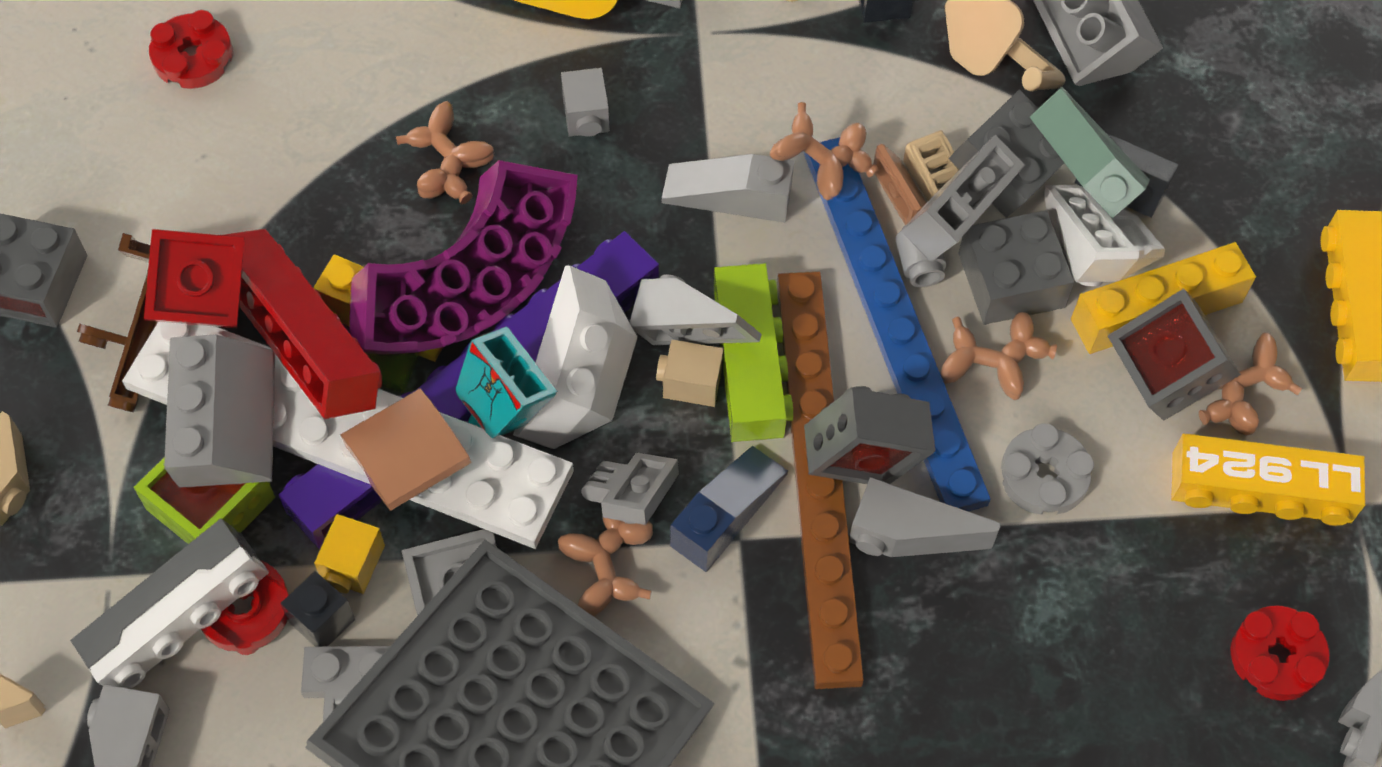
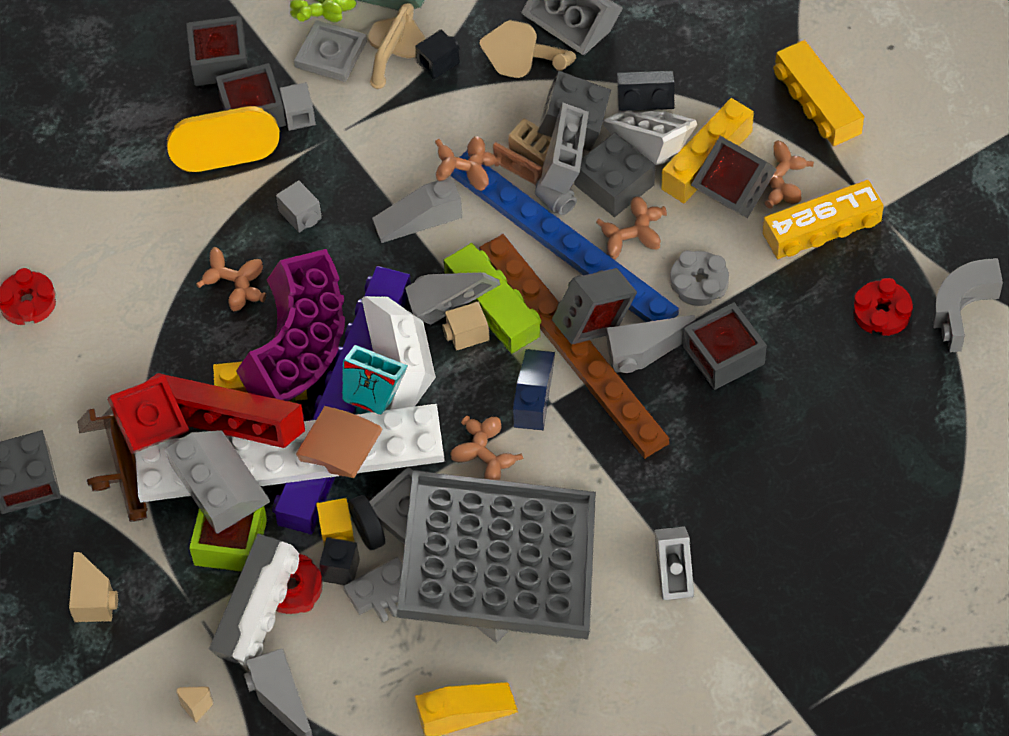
camera: 25 degrees left, 5 degrees down
(383, 577) = (366, 522): none -> black tyre
(631, 490) = (475, 404): light grey hinge -> none
(1017, 590) = (724, 345): none -> piece
(1089, 153) = (621, 86): sand green slope -> none

